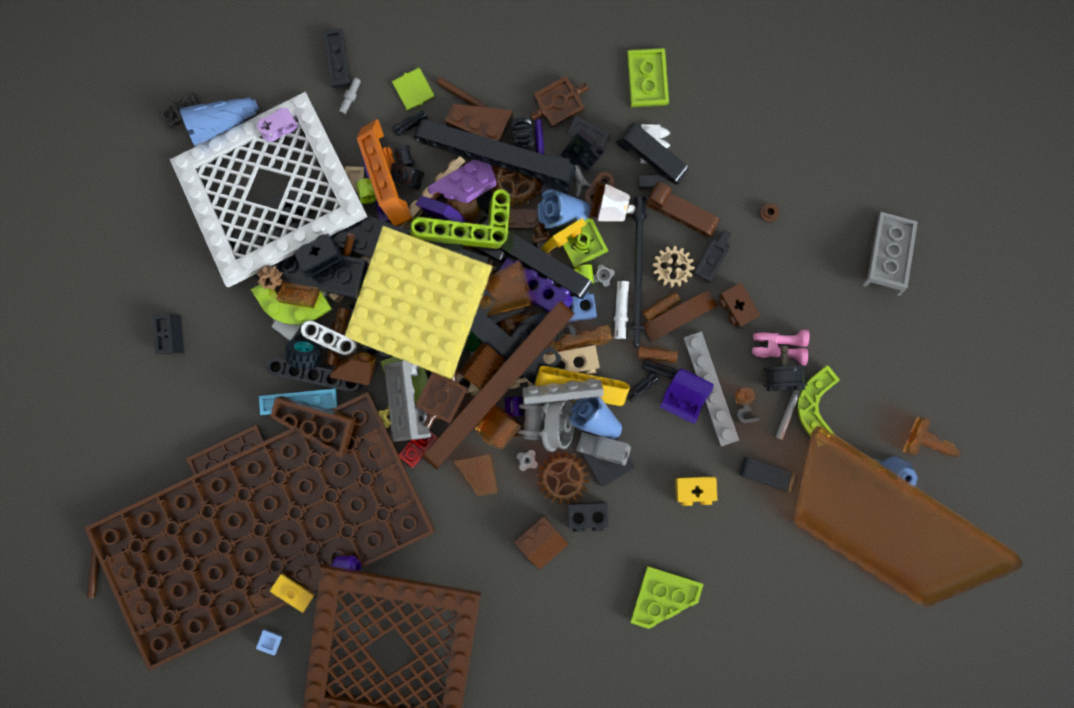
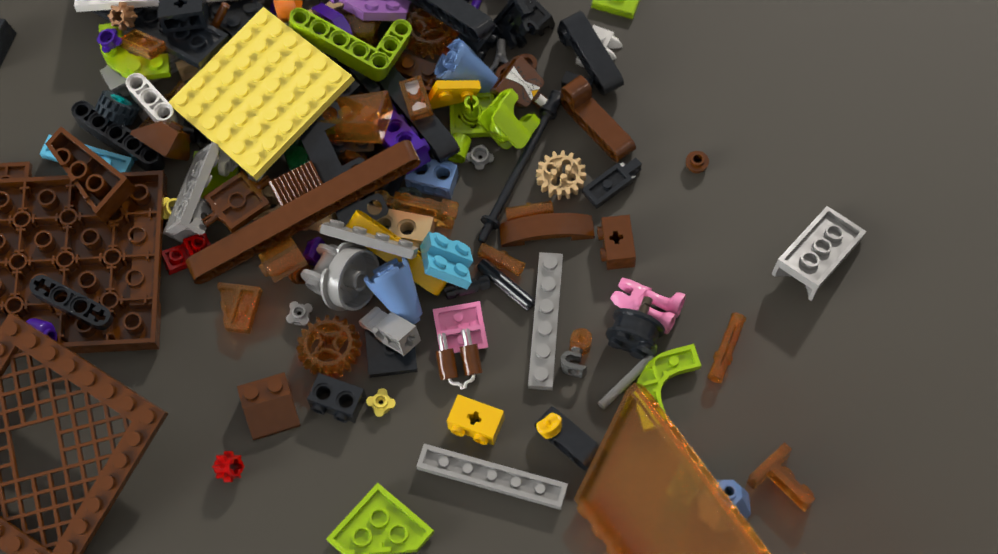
camera: 30 degrees right, 20 degrees down
(264, 303) = (108, 39): none -> dark purple plate
(355, 530) = (72, 300): none -> black beam
(534, 600) = (228, 466): none -> red gear
(541, 254) = (416, 98): none -> clear orange piece
(615, 504) = (381, 409): none -> light yellow plate
(616, 244) = (502, 124): none -> lime piece
(621, 310) = (478, 205): white pin -> none
(622, 377) = (446, 259): none -> medium azure plate
(651, 422) = (454, 319): none -> bright pink slope
(671, 445) = (447, 362): none -> reddish brown piece
(686, 395) = (512, 310): dark purple bracket -> none
(725, 526) = (492, 476): none -> light grey plate
(755, 476) = (549, 426): none -> yellow piece
(851, 357) = (717, 371): none -> clear orange pin

